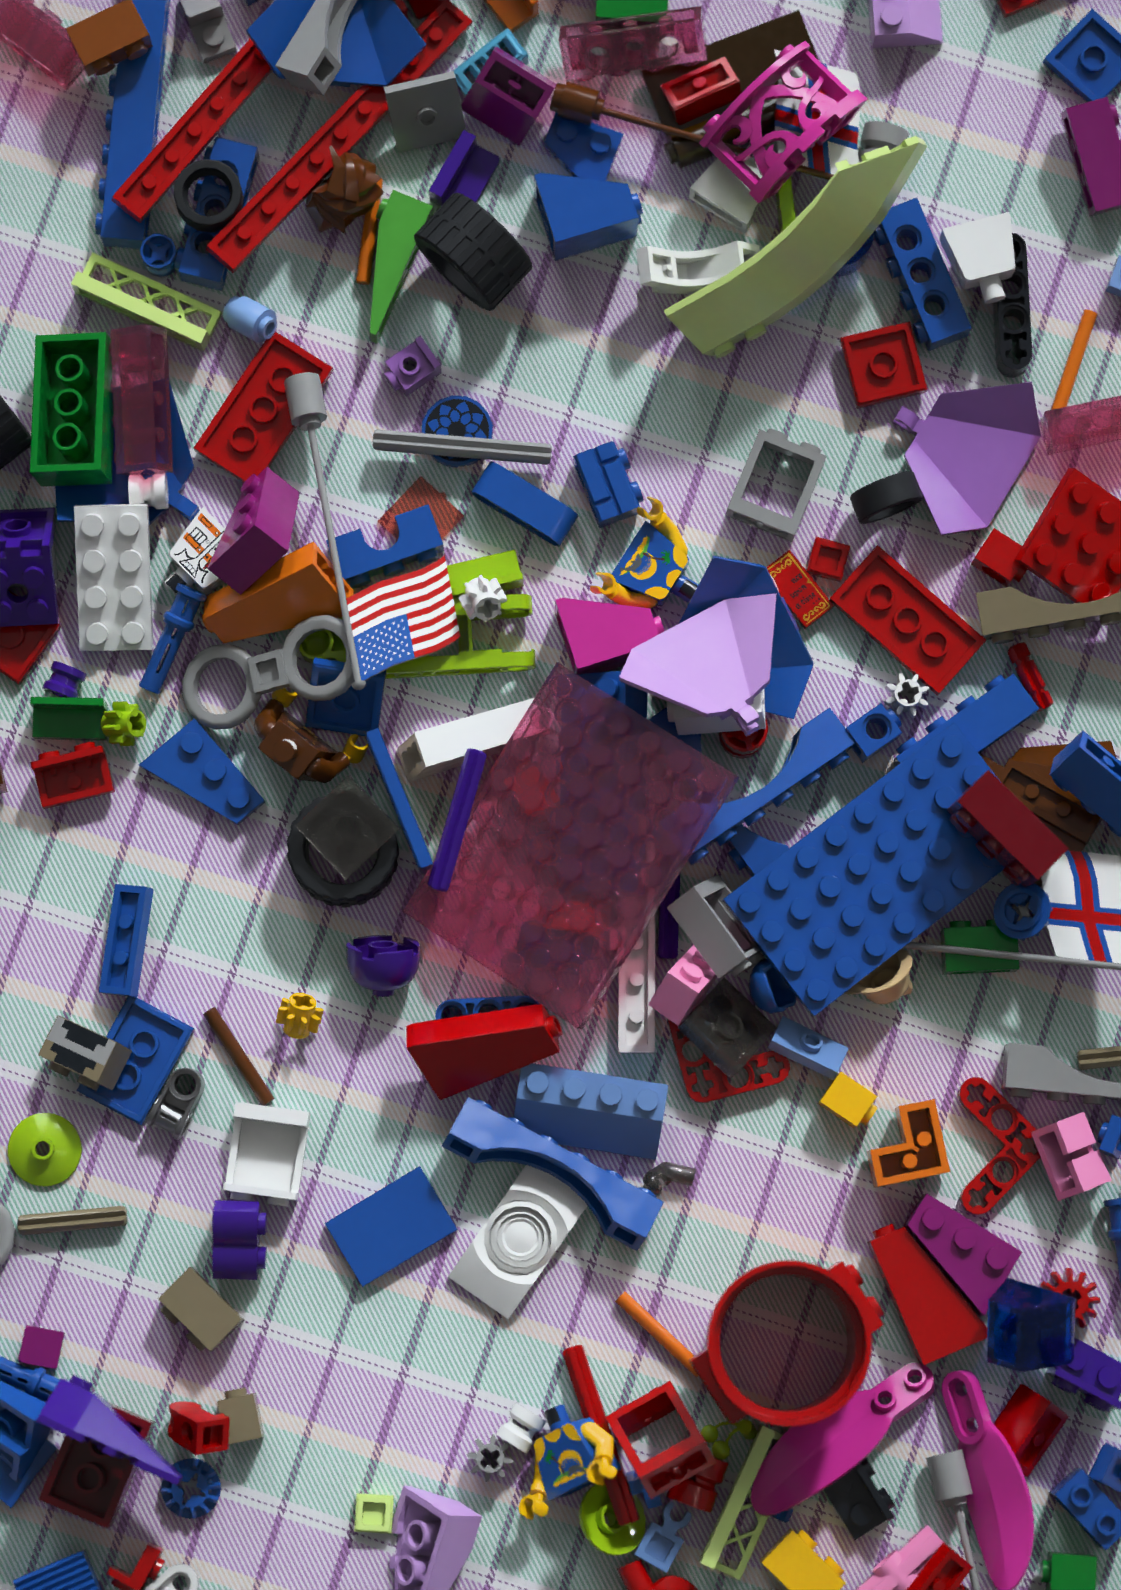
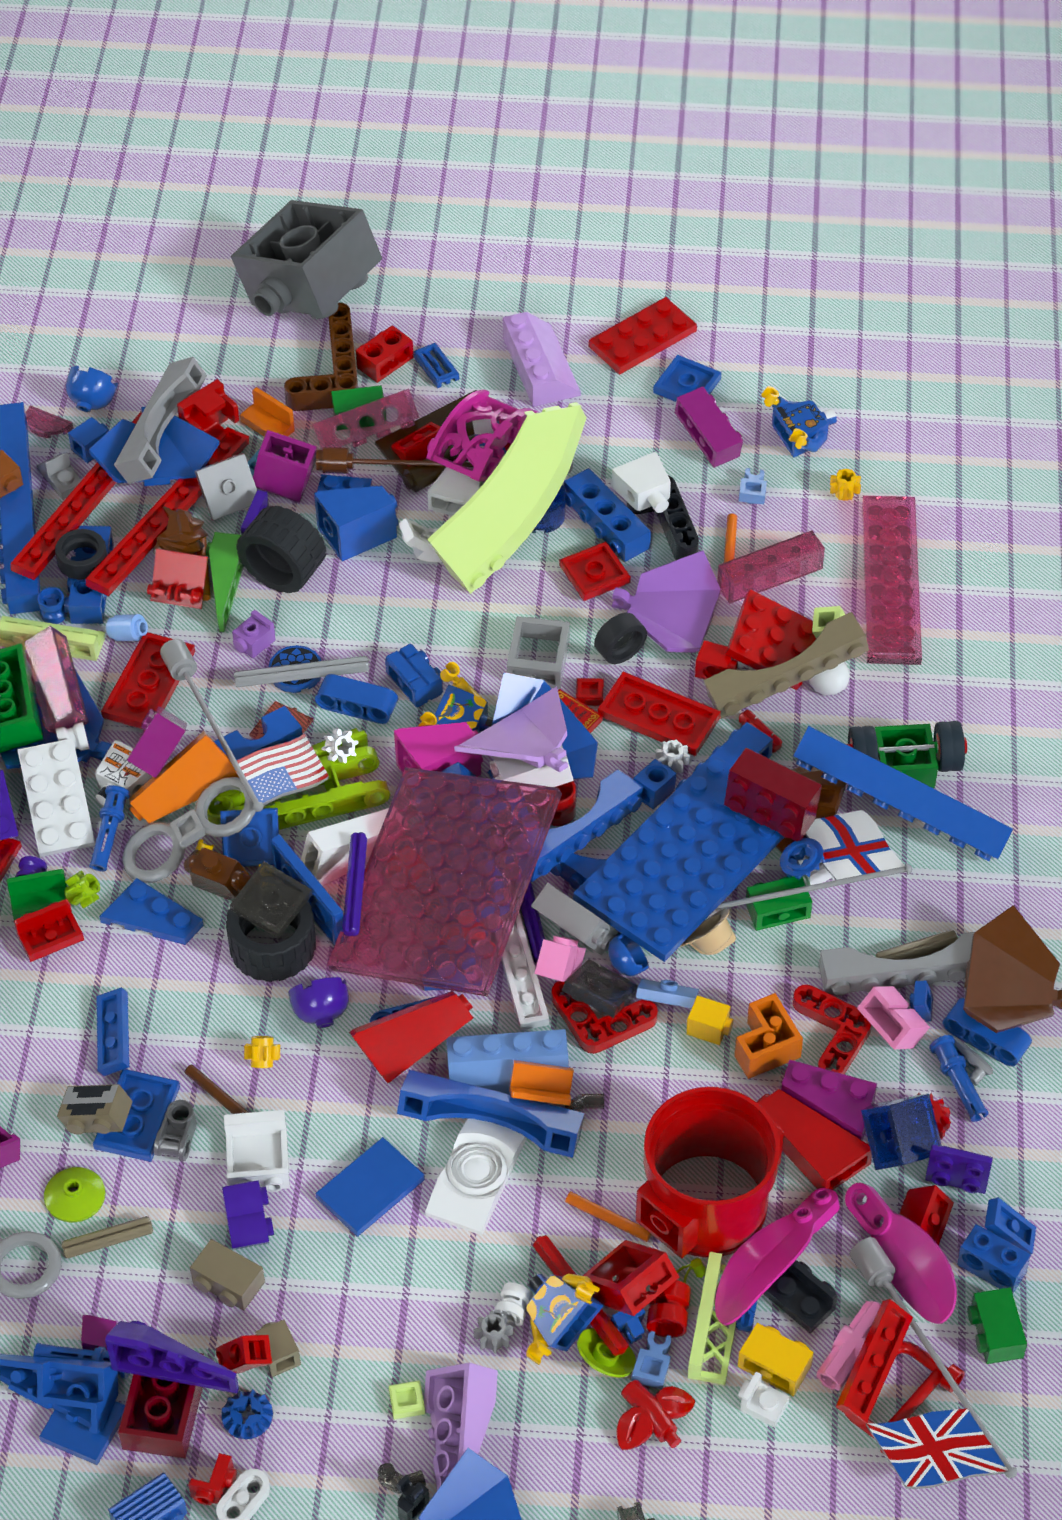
camera: 10 degrees left, 30 degrees down
(330, 256) = (178, 578): none -> hinge
(621, 1150) = (541, 1082): none -> orange panel

